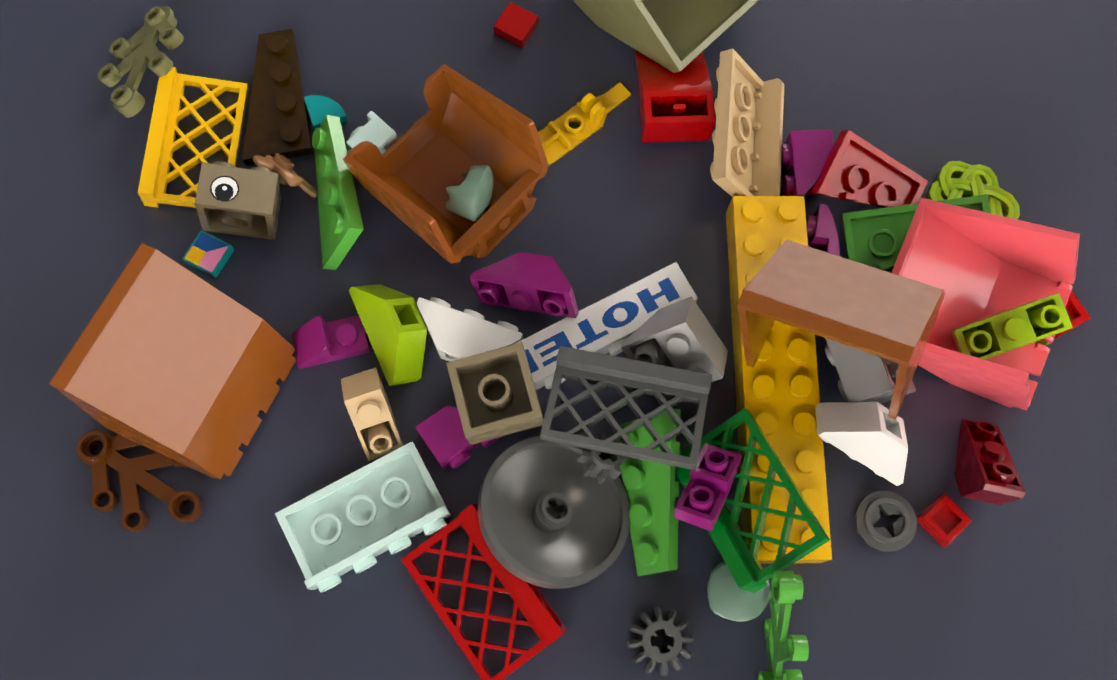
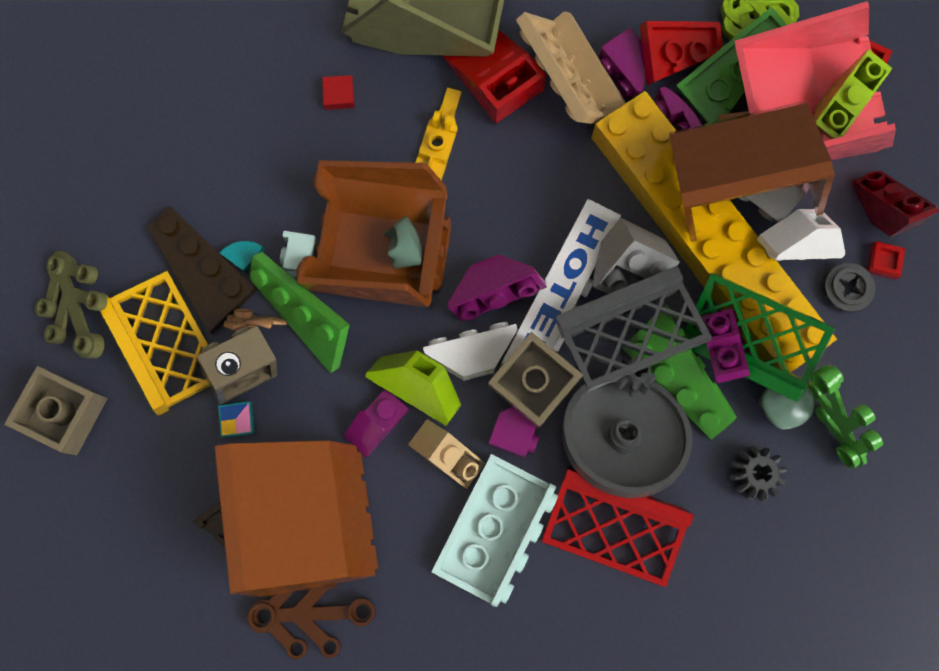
camera: 30 degrees left, 5 degrees up
(57, 140) = (56, 411): none -> dark tan brick

